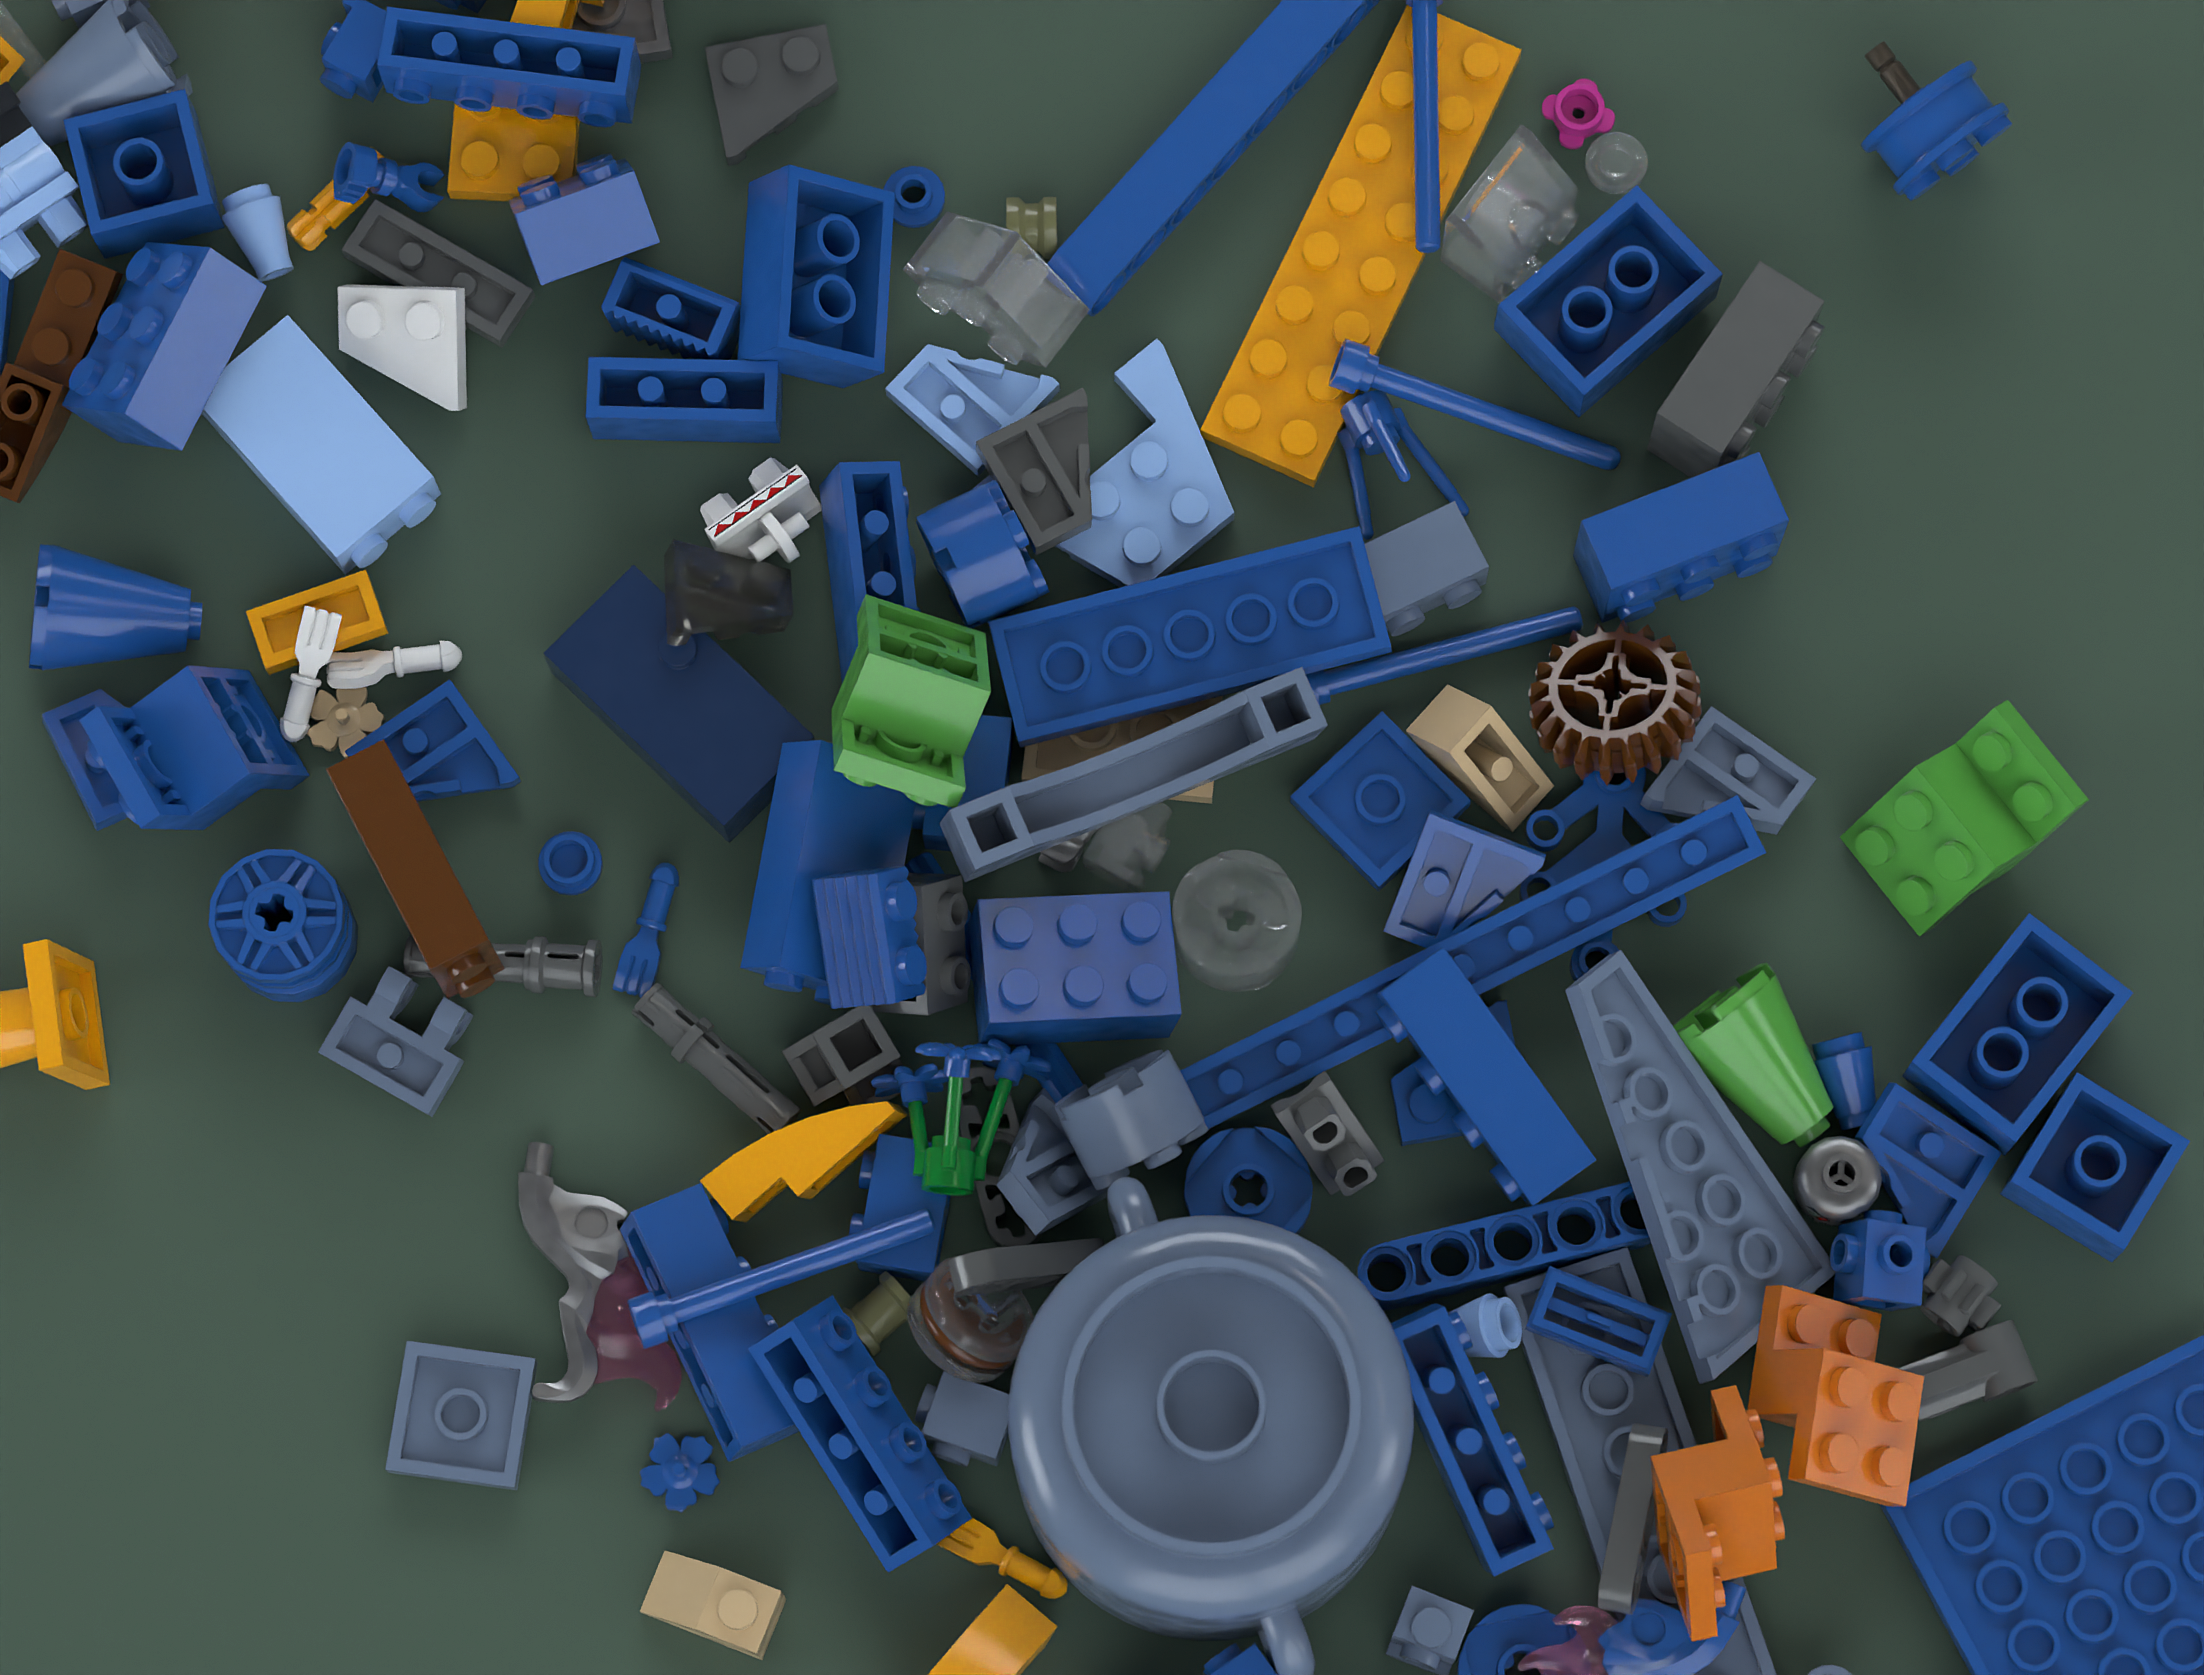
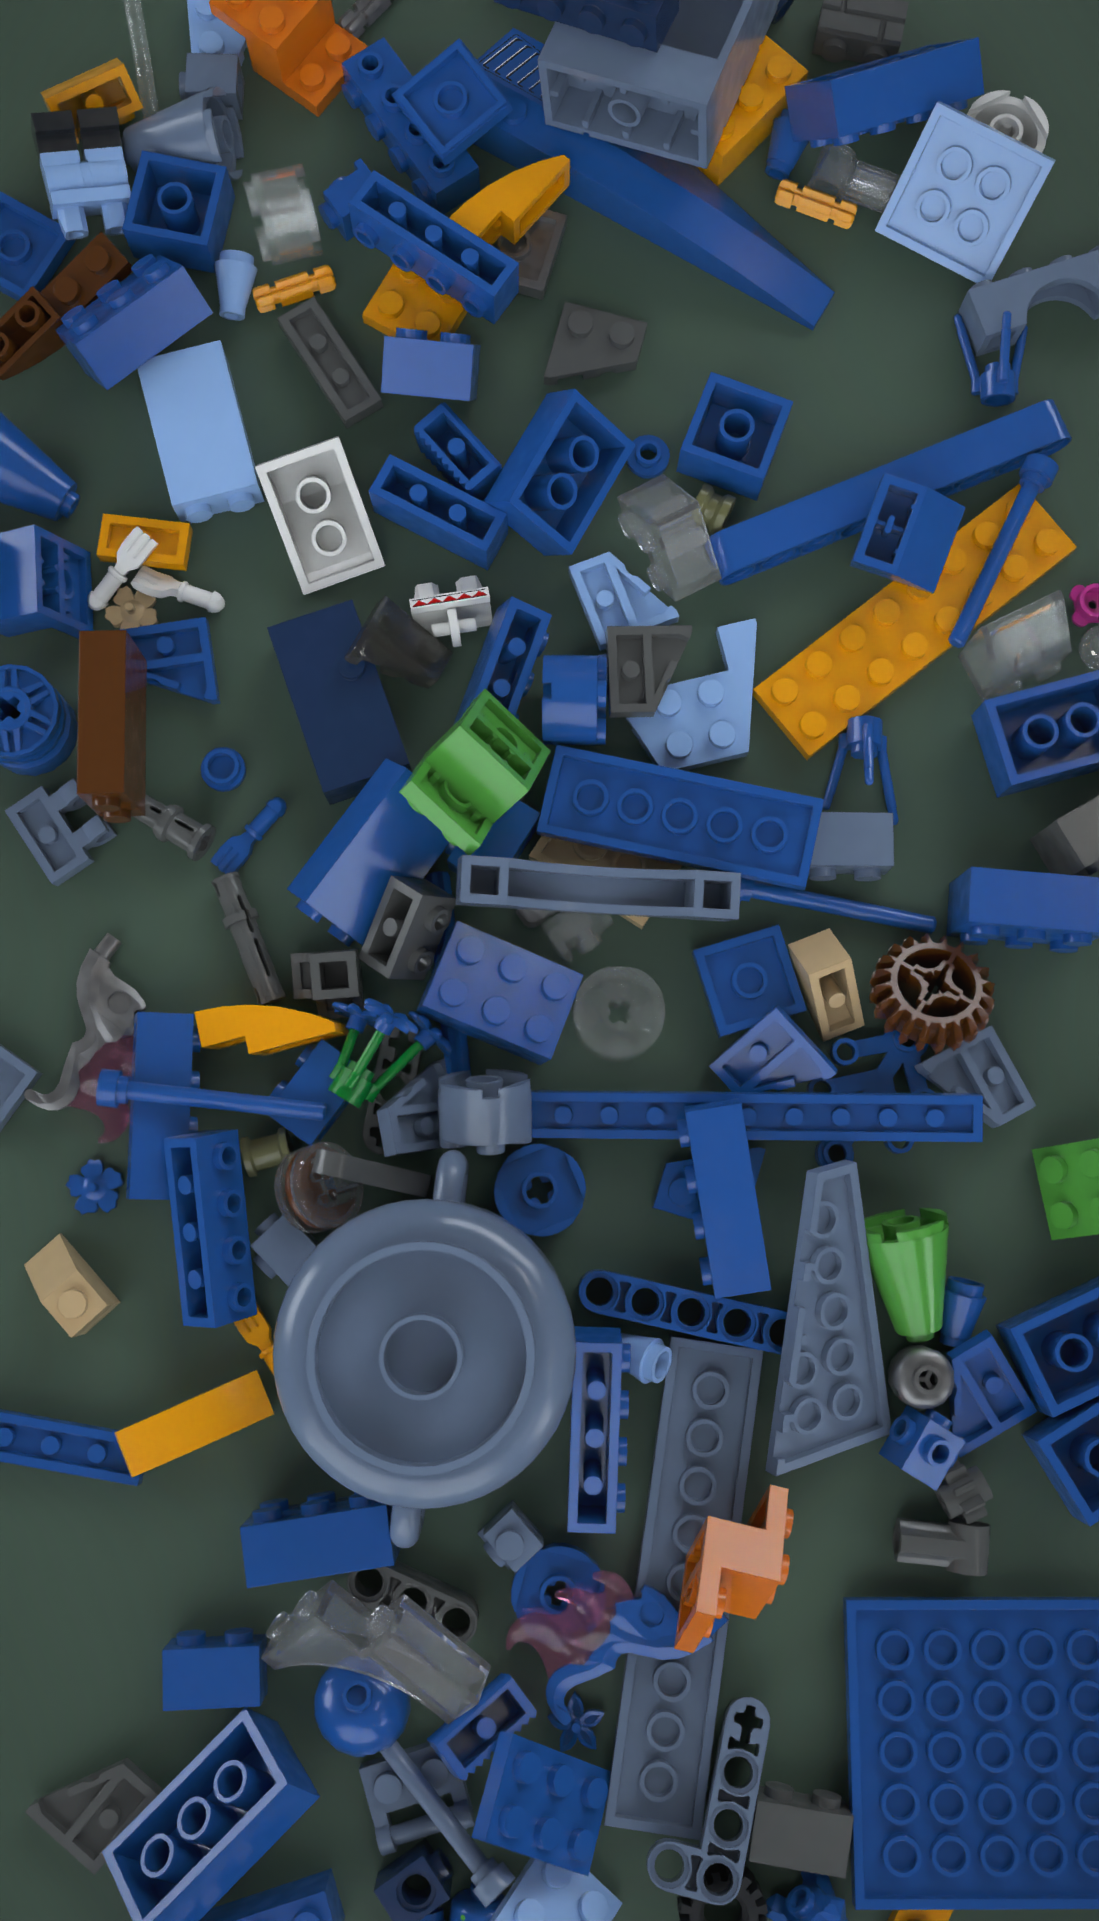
camera: 20 degrees right, 5 degrees up
(287, 112) = (285, 215): none -> clear brick
(360, 169) = (310, 272): blue piece -> none
(409, 336) = (291, 392): white wing -> none
(529, 475) = (320, 515): none -> white slope
(869, 937) = (373, 911): blue brick -> none
(1014, 120) = (733, 436): none -> blue brick
(1298, 142) = (907, 533): none -> blue slope
(1329, 1136) = (608, 1184): dark grey hips -> none
(1361, 370) = (874, 700): blue piece -> none
(1631, 1521) = (677, 1539): dark grey beam -> none
(1650, 1342) = (693, 1361): blue tile -> none
(1847, 1411) = (855, 1545): orange bracket -> none

